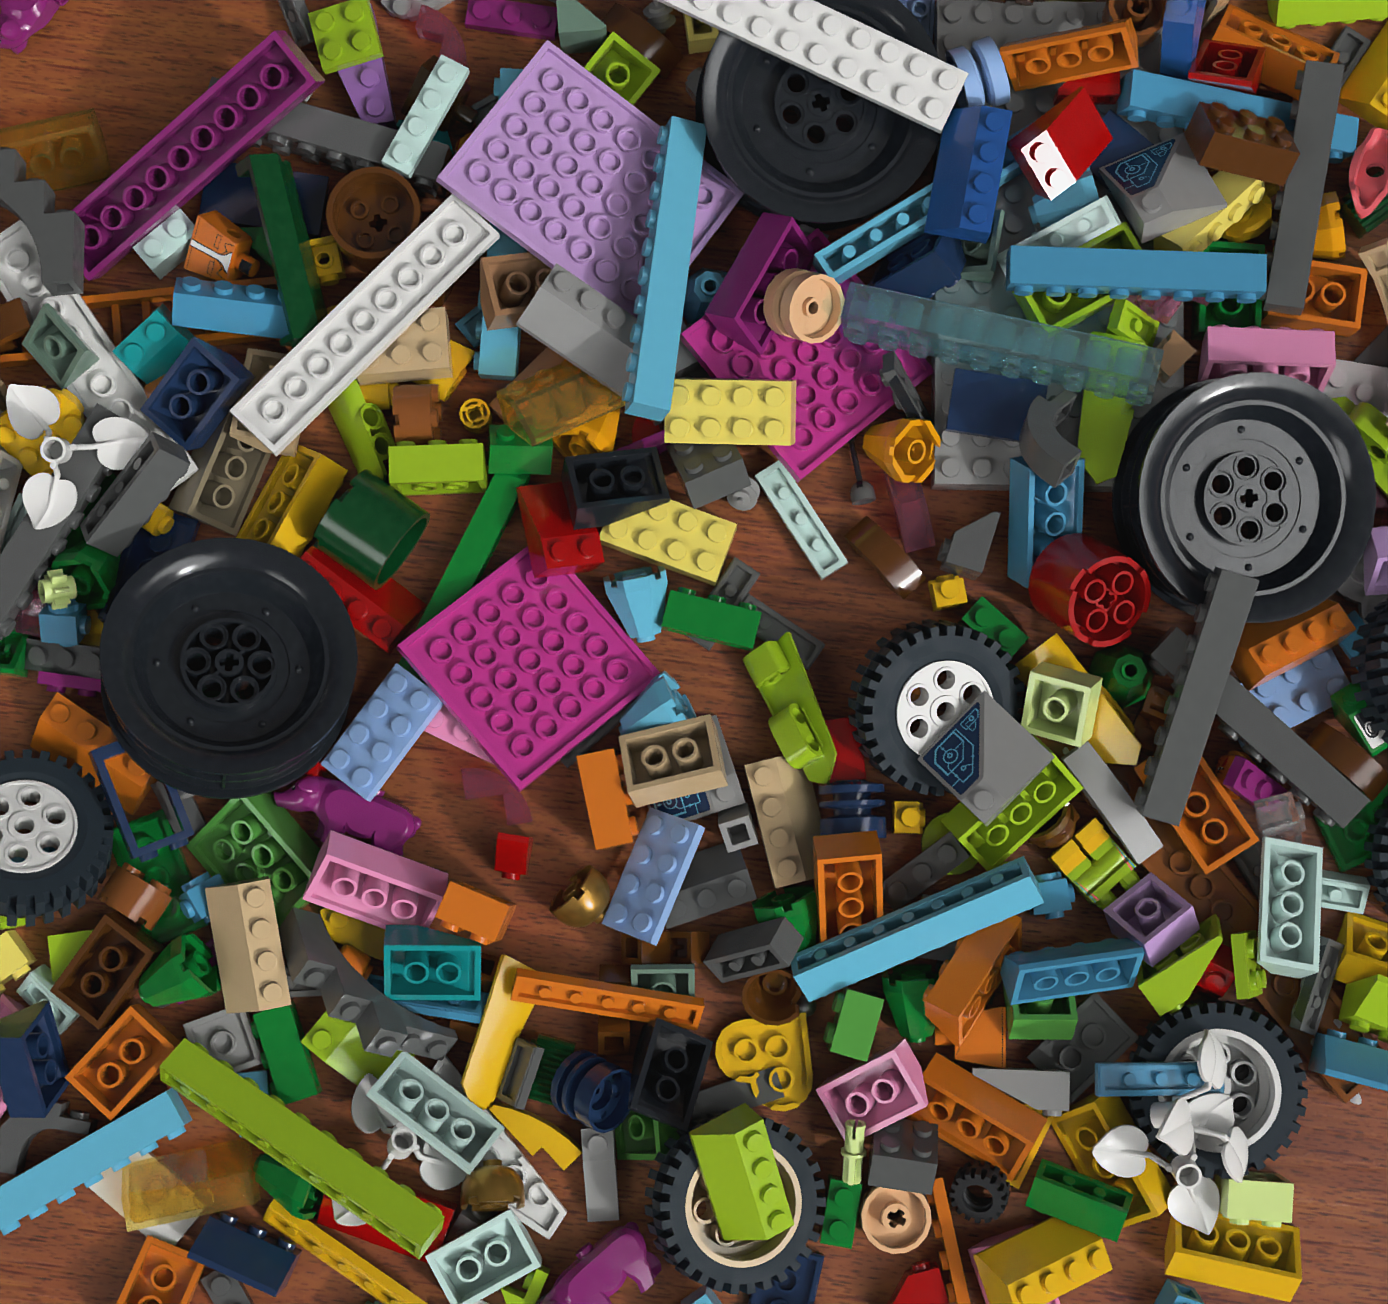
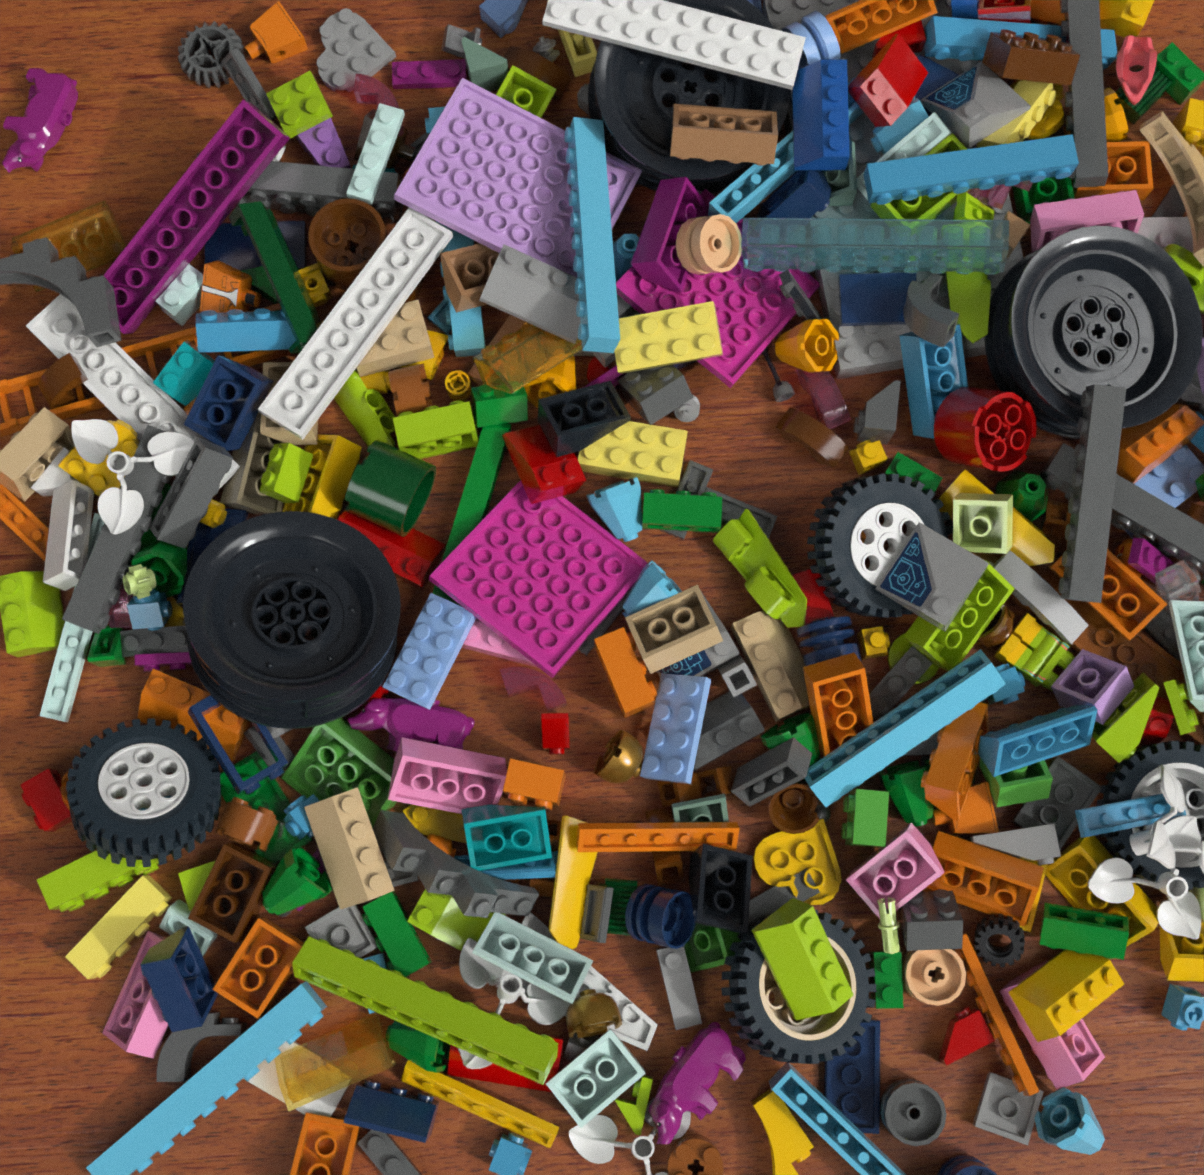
camera: 10 degrees left, 5 degrees down
(58, 347) = (108, 387): sand green slope -> none
(252, 485) = (286, 473): none -> lime brick
(537, 1133) = (619, 962): yellow slope -> none
(801, 520) = (737, 420): light aqua plate -> none
(846, 174) = (724, 134): none -> medium nougat slope

